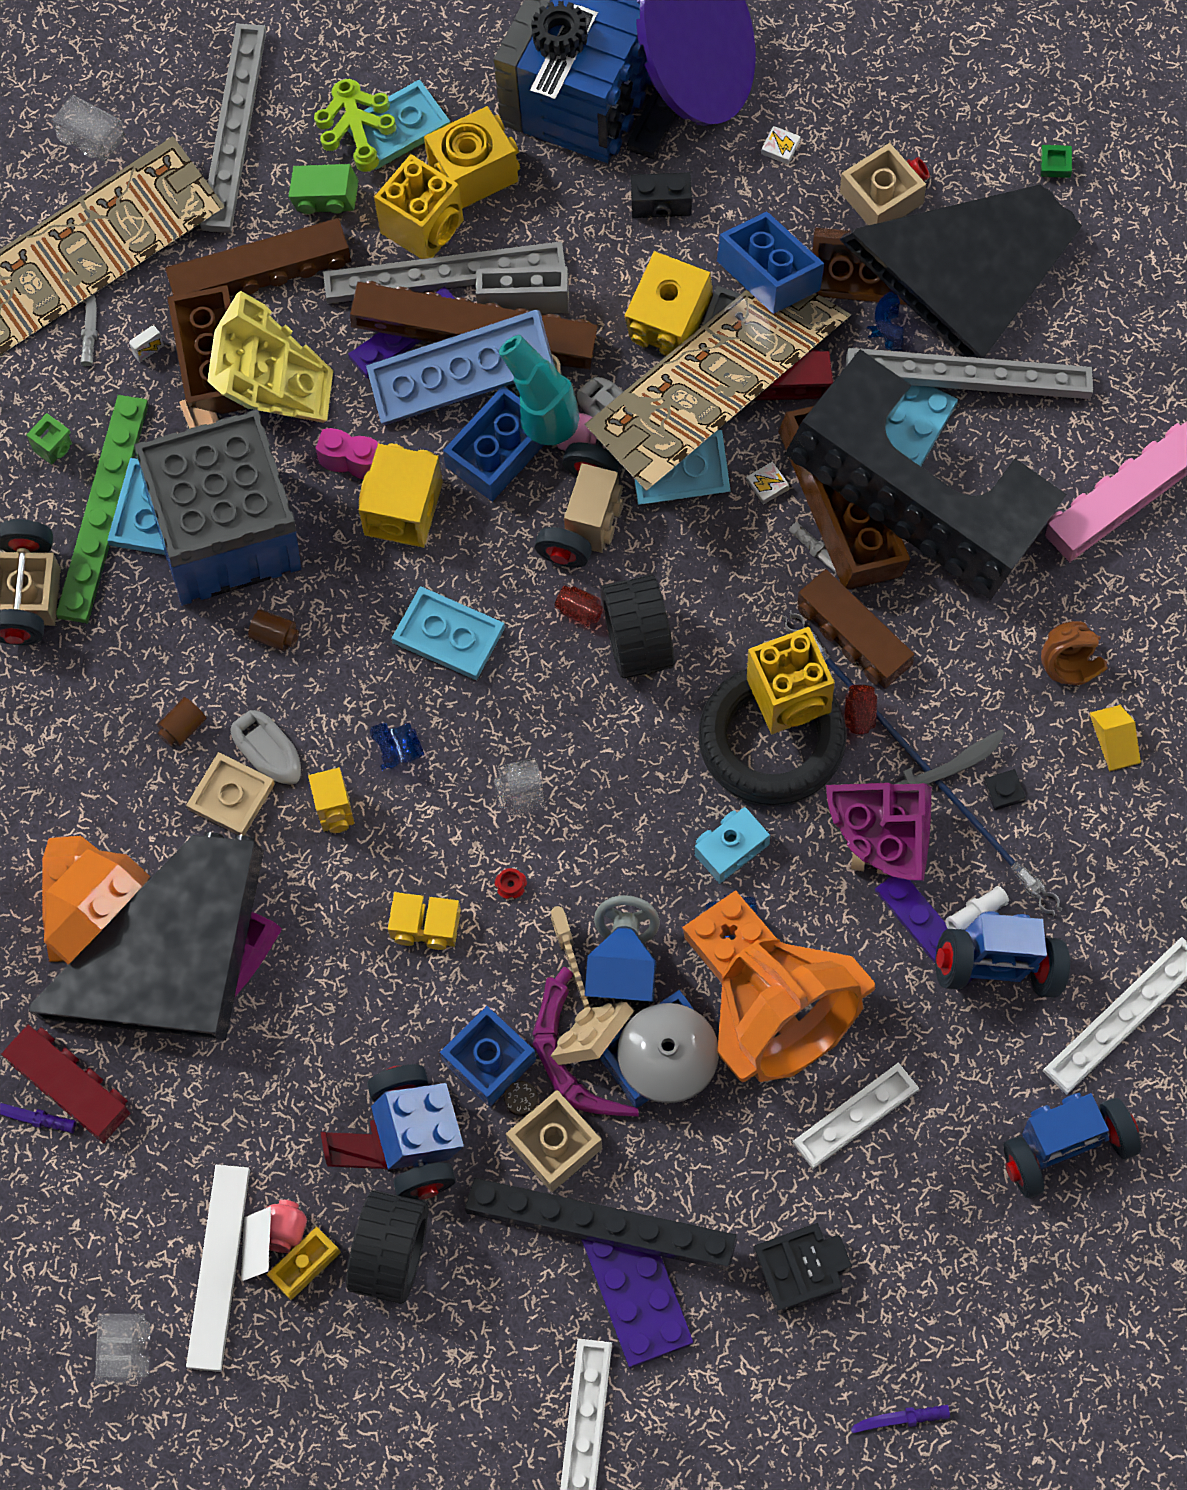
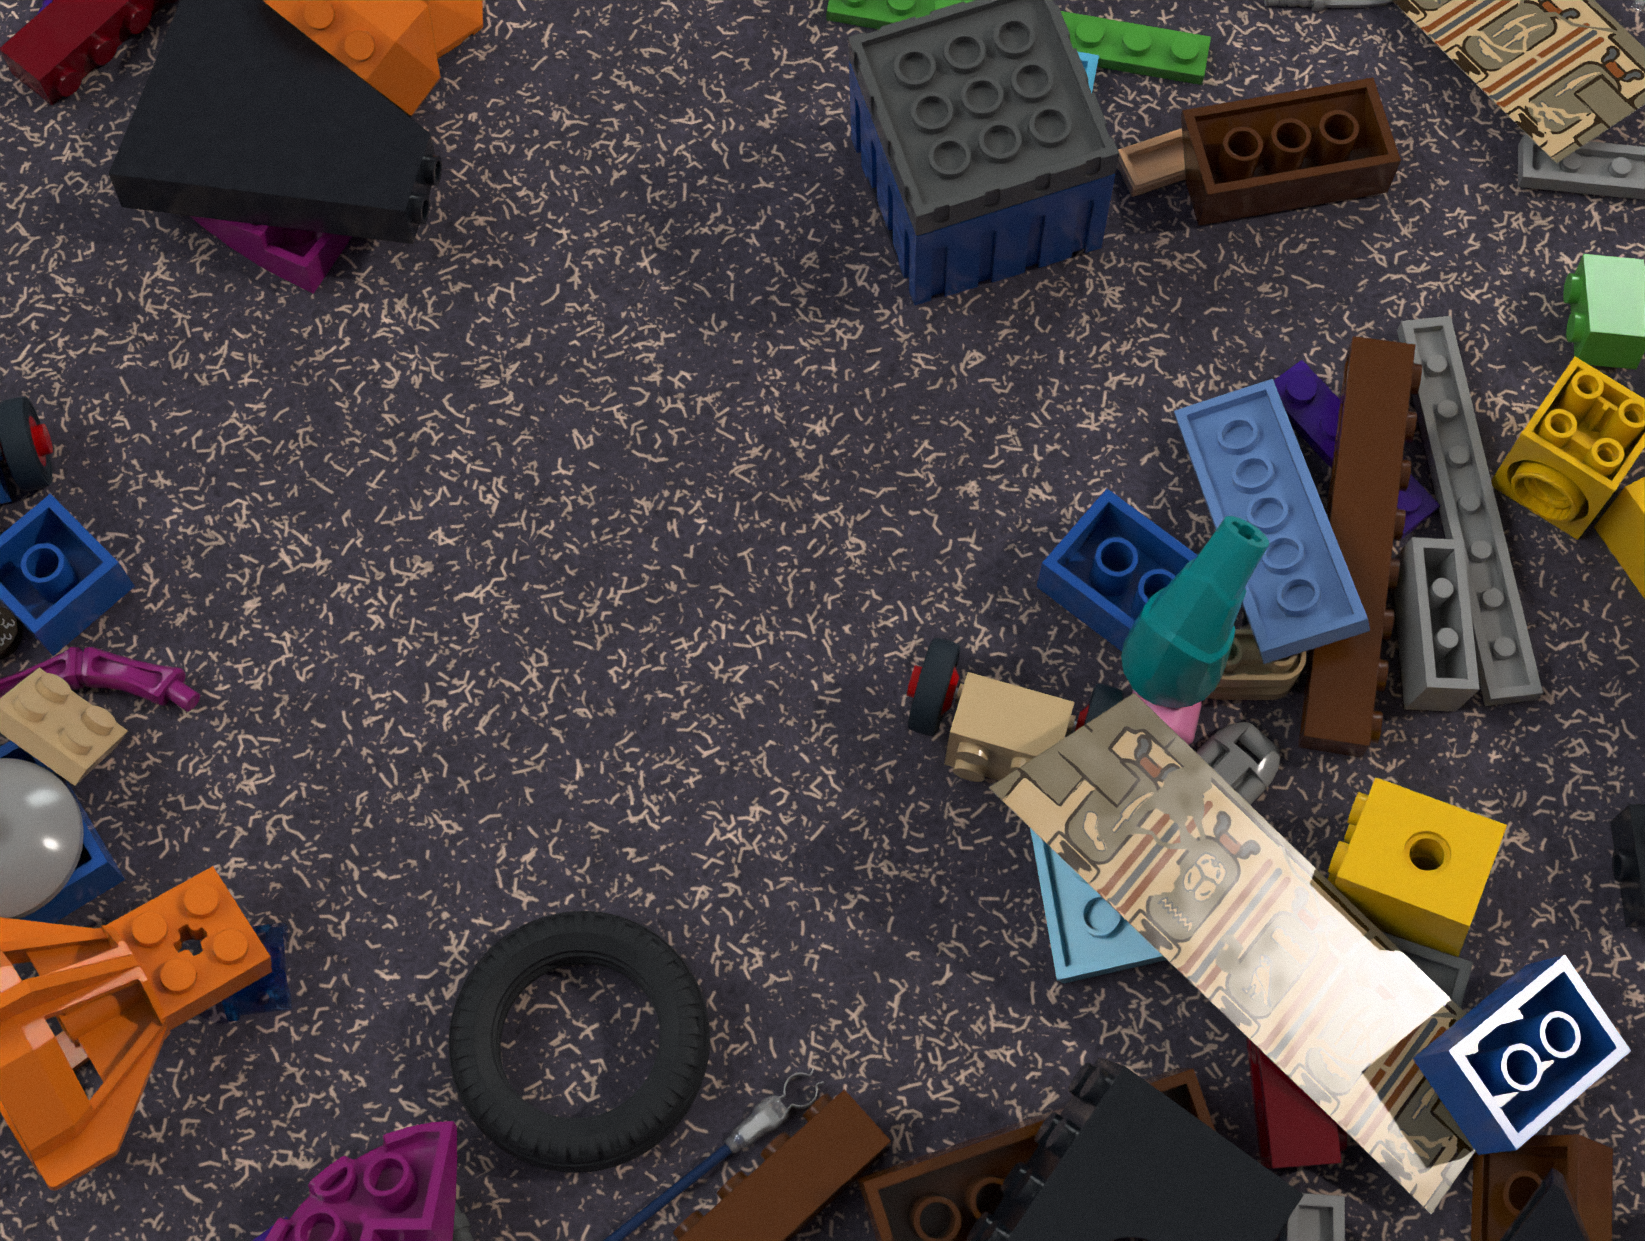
camera: 85 degrees right, 0 degrees up
(146, 343) = (1299, 65): white tile -> none
(180, 722) = (649, 139): reddish brown brick -> none
(230, 794) = (529, 212): tan plate -> none
(265, 261) = (1461, 229): reddish brown brick -> none
(265, 366) = (1248, 220): light yellow wedge -> none
(267, 747) = (605, 261): light grey piece -> none
(273, 630) = (800, 260): reddish brown brick -> none
(331, 800) = (491, 339): yellow piece -> none
(344, 453) = (1111, 361): dark pink brick -> none
(396, 744) = (596, 438): clear blue piece -> none
(400, 494) = (1031, 431): yellow brick -> none
(408, 916) = (288, 495): yellow piece -> none
(448, 633) = (792, 518): medium azure plate -> none
(510, 875) = (342, 606): red plate -> none
(520, 787) = (497, 617): clear brick -> none
(566, 942) = (242, 694): tan piece -> none
(579, 605) = (836, 720): clear red brick -> none
(621, 963) = (160, 774): blue piece -> none
(637, 626) = (770, 799): black tyre -> none
(731, 844) = (383, 966): medium azure brick -> none
(767, 483) = (1077, 1044): tile -> none
(790, 680) = (628, 1049): yellow brick -> none
(816, 547) = (962, 1124): light grey piece -> none
(860, 709) = (619, 1199): clear red brick -> none

